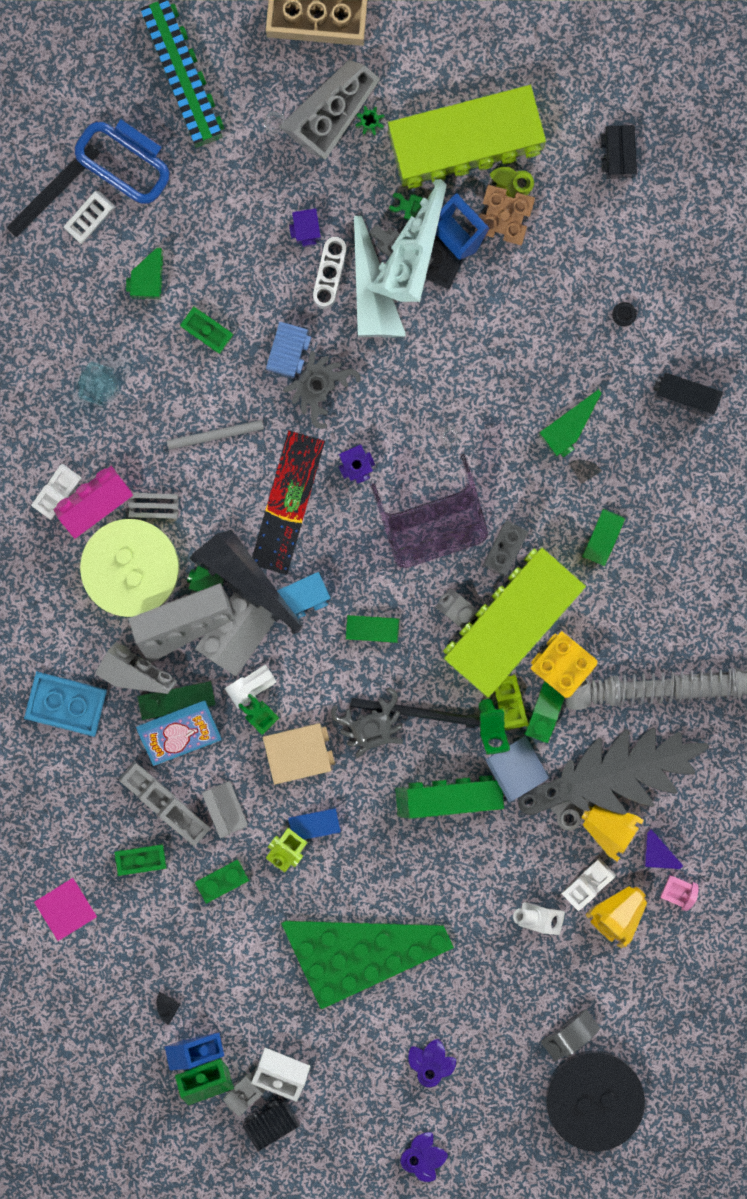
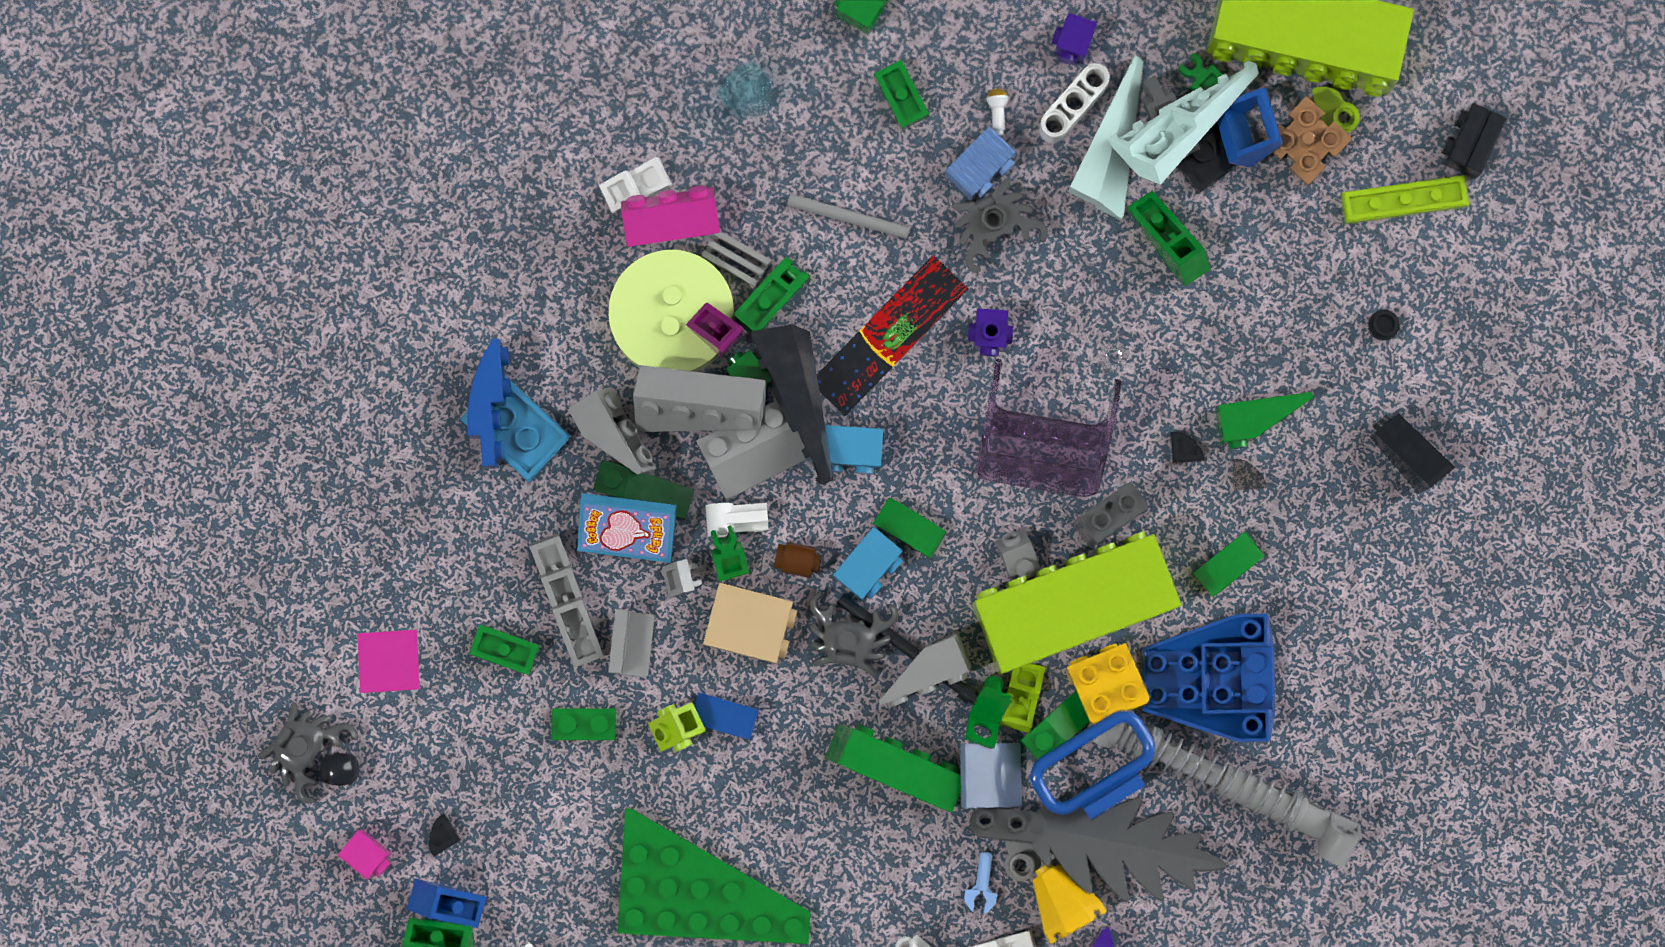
camera: 25 degrees right, 5 degrees down
(33, 689) = (487, 391): none -> blue slope
(36, 999) = (299, 745): none -> dark grey animal
(72, 1000) = (339, 769): none -> black piece
(122, 1048) = (366, 855): none -> dark pink brick
(165, 564) = (715, 329): none -> magenta slope
(192, 521) = (770, 296): none -> green plate
(233, 747) = (679, 579): none -> light grey tile
(275, 298) = (997, 100): none -> white piece
(307, 691) = (797, 559): none -> reddish brown brick
(357, 669) = (868, 564): none -> dark azure brick
(439, 713) = (937, 662): none -> light grey slope
(445, 332) = (1170, 238): none -> green slope
(532, 473) = (1184, 449): none -> black tile
(550, 845) = (982, 884): none -> light blue bar
(593, 218) = (1404, 199): none -> lime tile
(603, 735) = (1111, 788): none -> blue bar
(635, 621) = (1216, 678): none -> blue wedge

